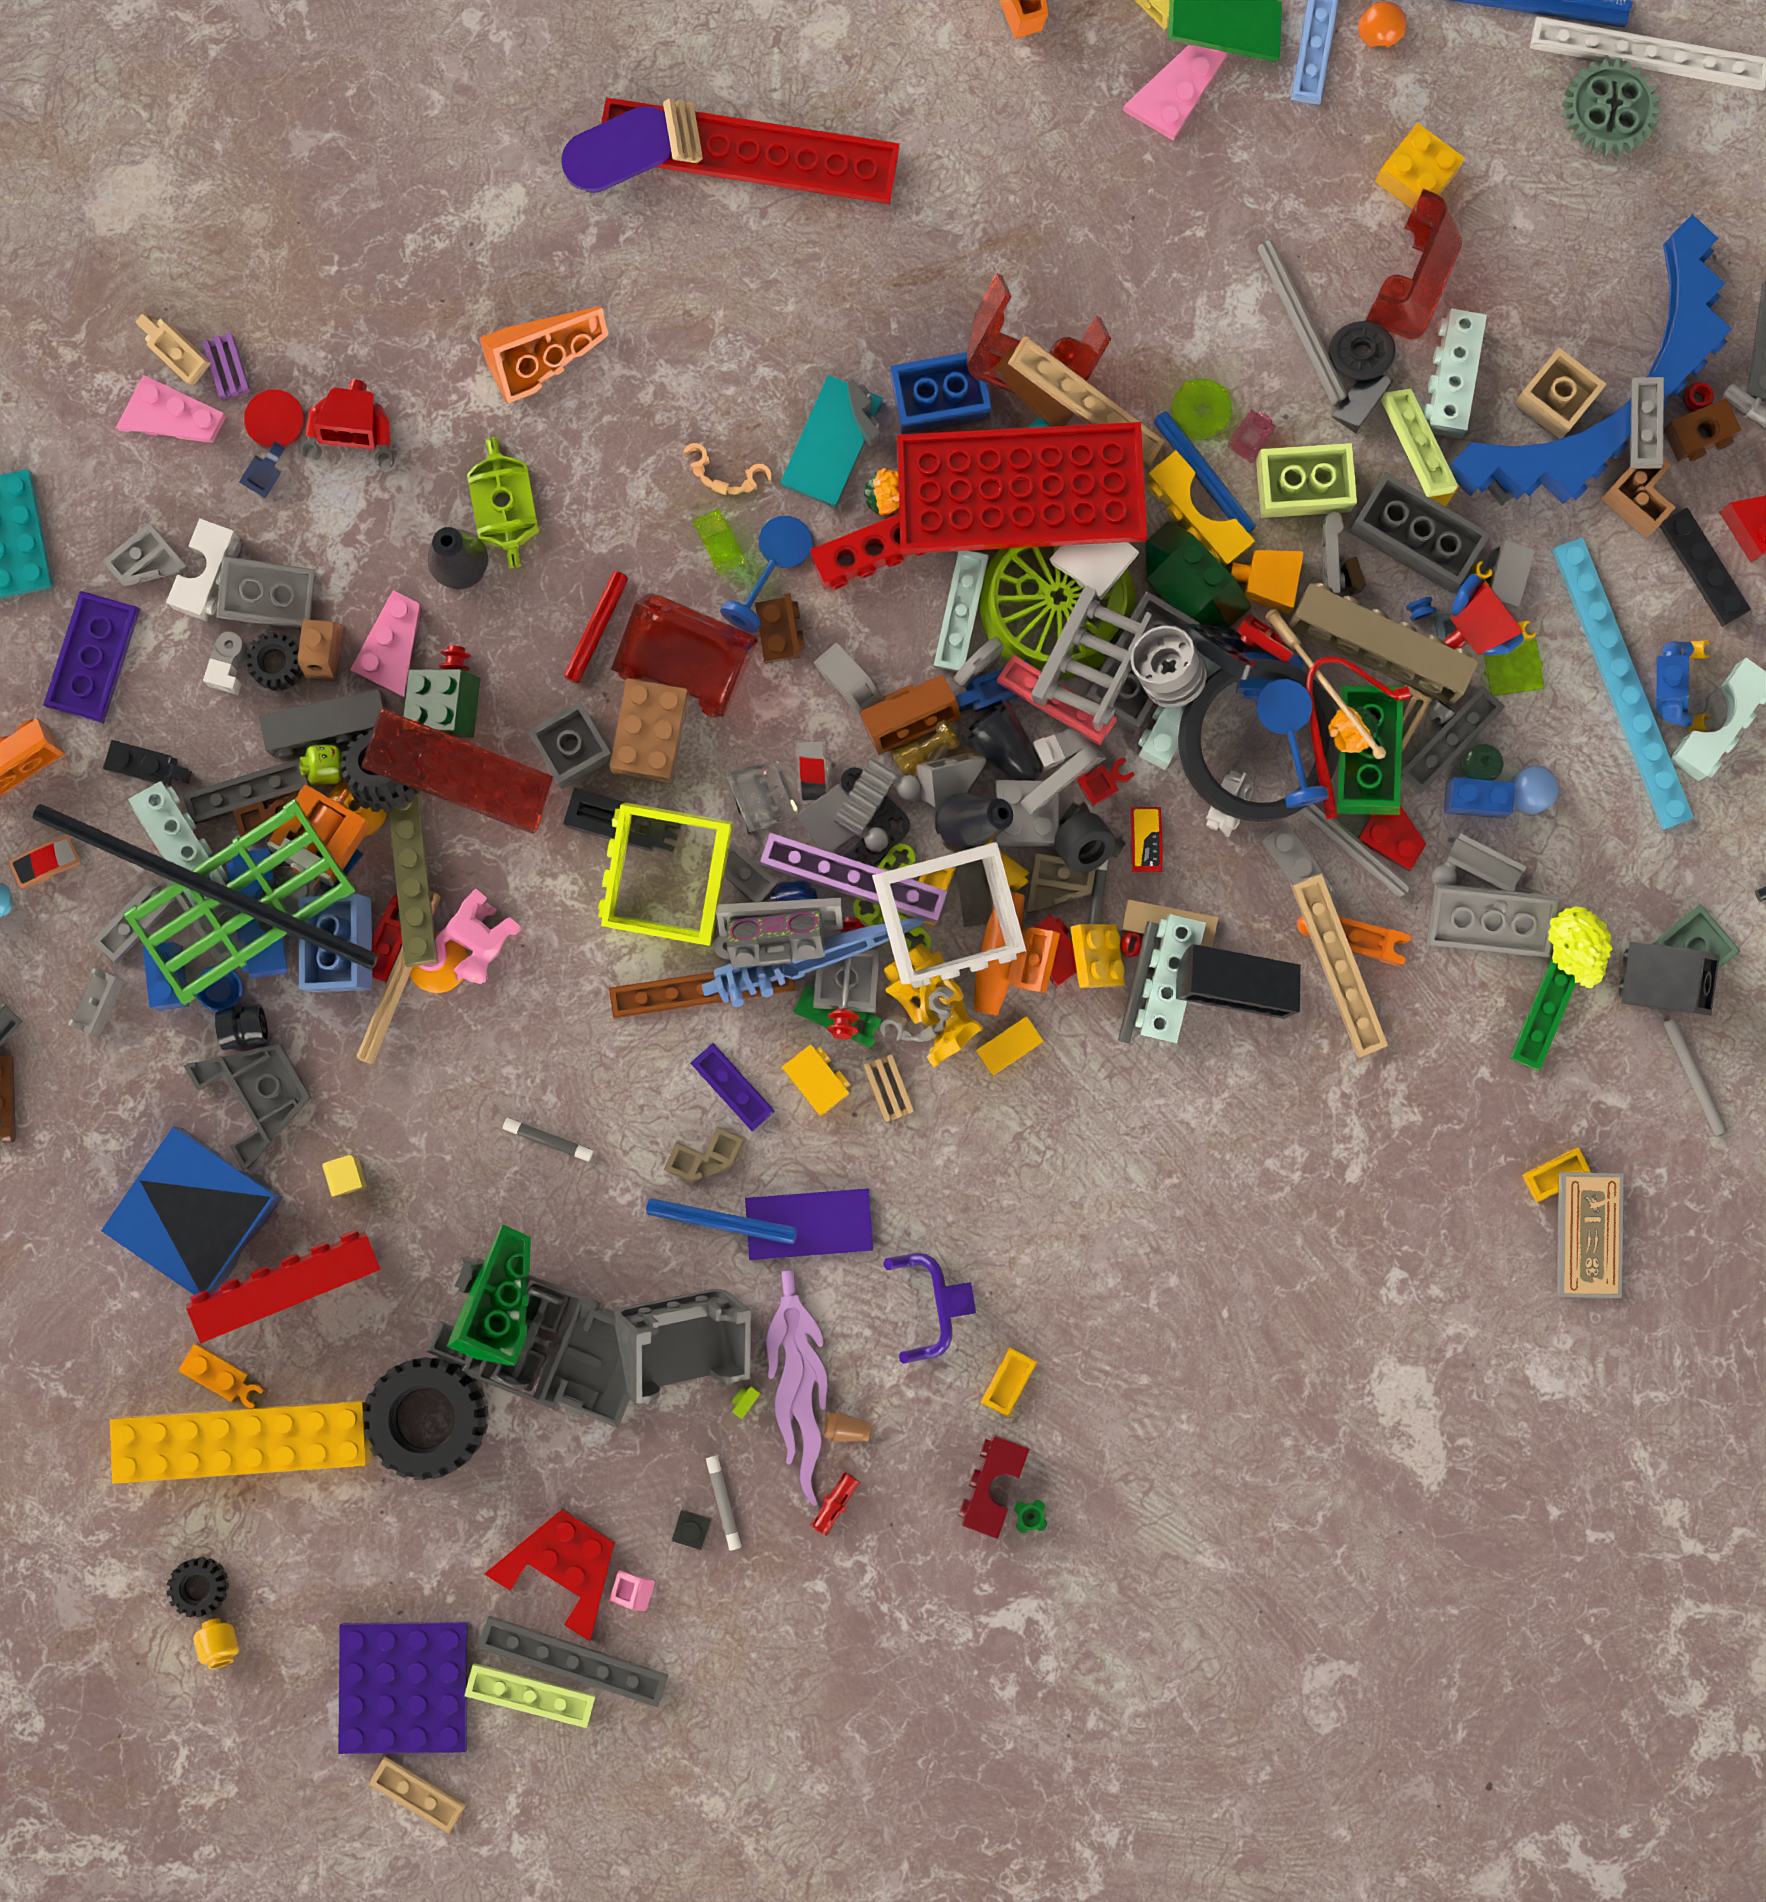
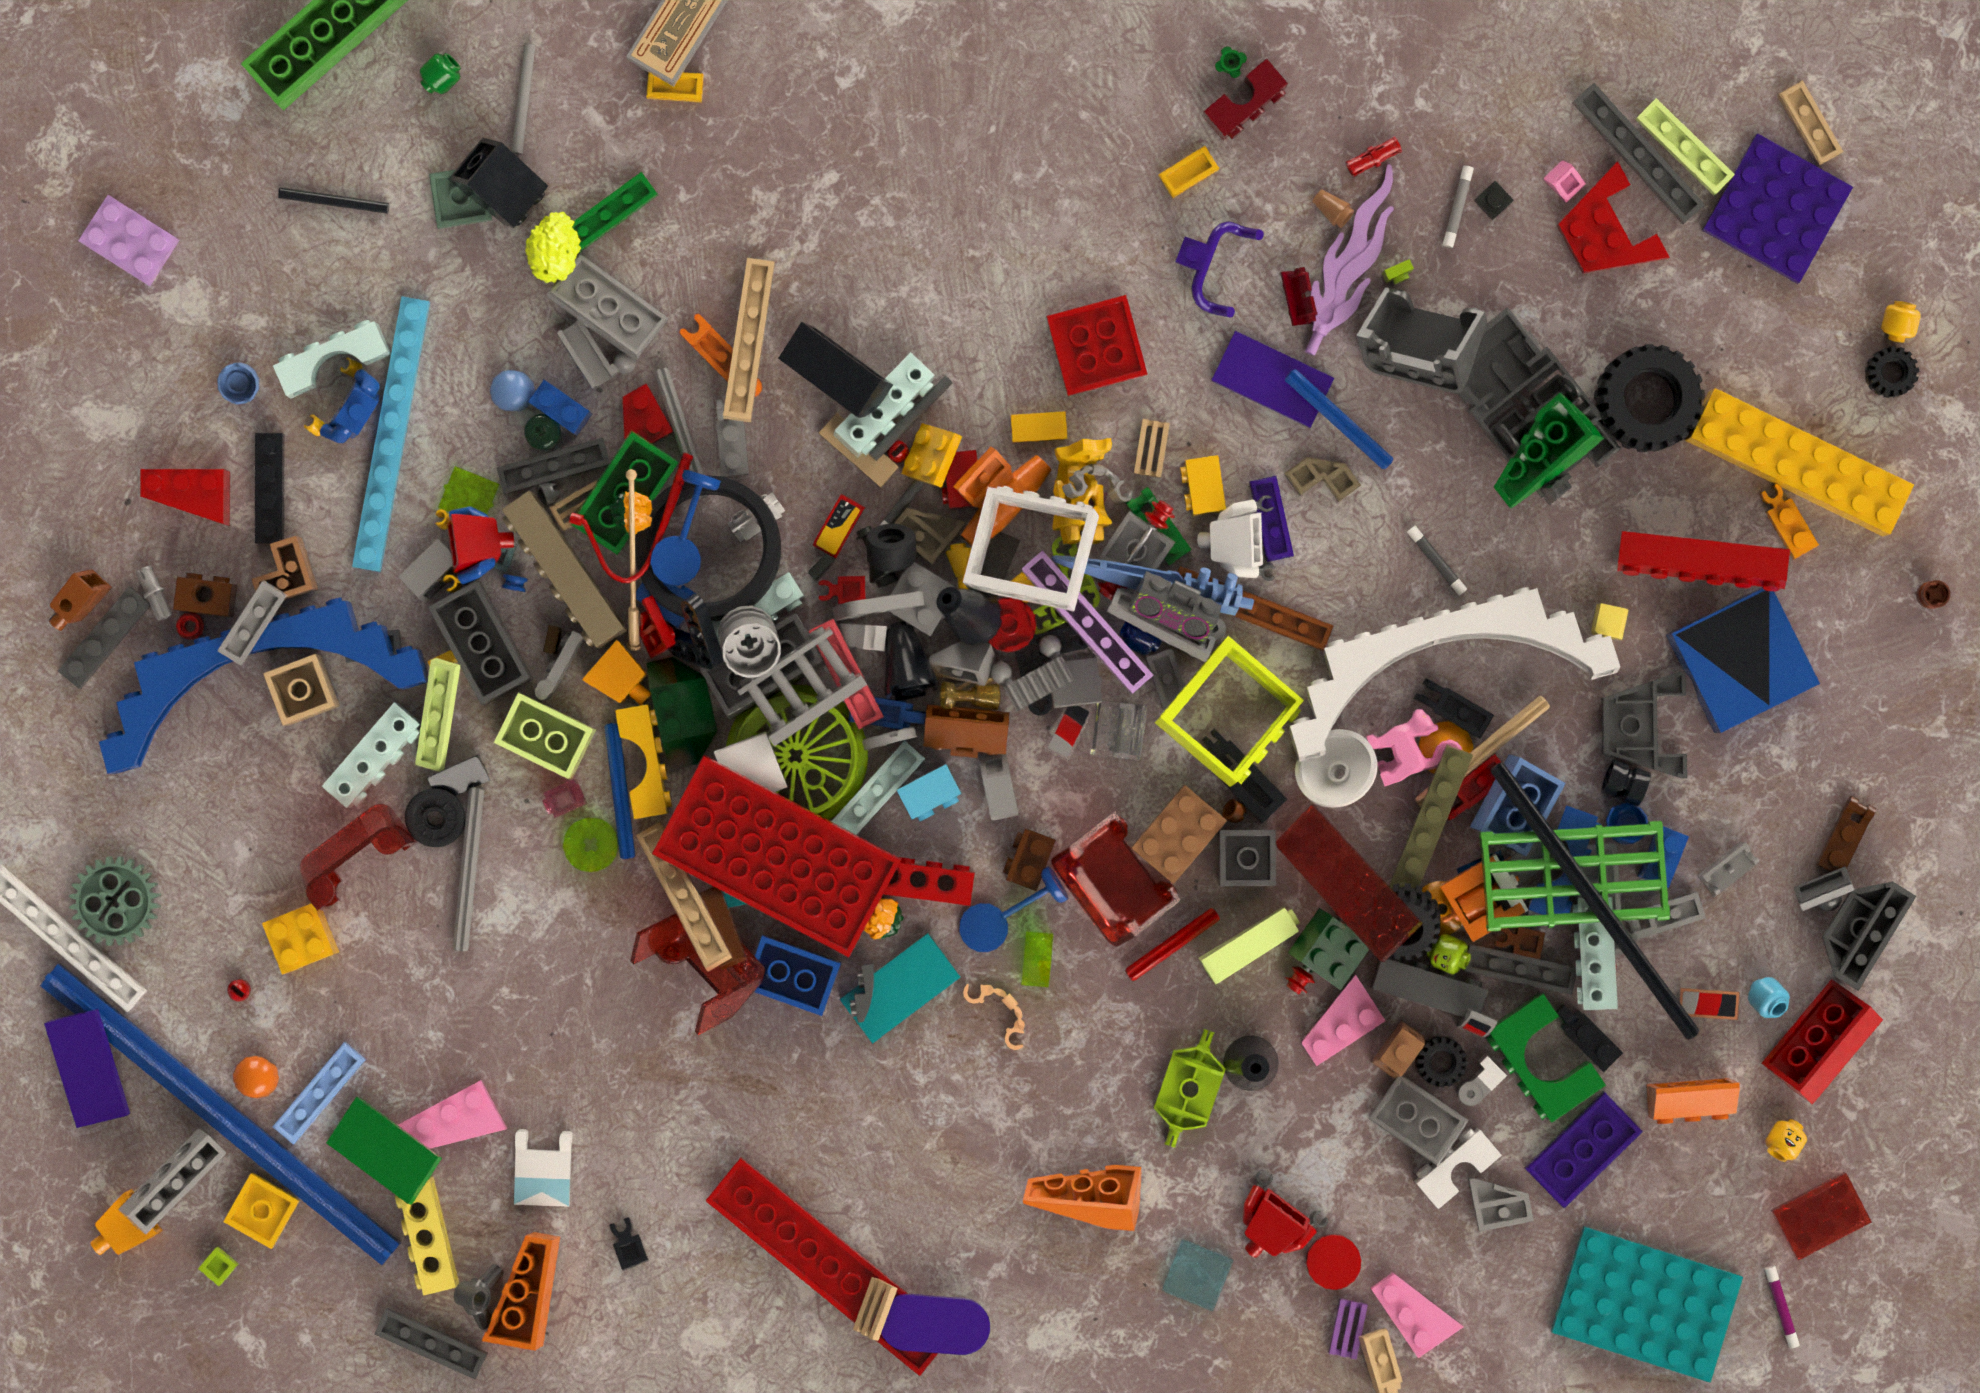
camera: 155 degrees left, 5 degrees up
(29, 1386) = (1938, 593): none -> copper wheel
(148, 688) = (1551, 1097): none -> green arch
(258, 714) = (1477, 1023): none -> slope
(261, 473) = (1367, 1220): dark blue plate -> none
(397, 335) = (1197, 1274): none -> clear light blue tile
(442, 1123) = (1508, 618): none -> white arch
(446, 1005) = (1457, 709): none -> black hinge
(522, 663) = (1249, 944): none -> yellowish green slope
(549, 882) = (1347, 754): none -> white dish
(608, 784) = (1234, 811): none -> dark orange hinge
(753, 1045) = (1238, 539): none -> white torso
(823, 1310) = (1300, 308): none -> dark red hinge
(910, 633) = (929, 792): none -> medium azure brick
(919, 837) = (1016, 627): none -> red tile
(943, 63) = (630, 1248): none -> black plate
(999, 1157) = (1096, 345): none -> red plate
(1065, 85) = (542, 1175): none -> white flag
(1140, 789) = (821, 567): none -> pearl dark grey tile
(1446, 98) = (243, 986): none -> red hinge

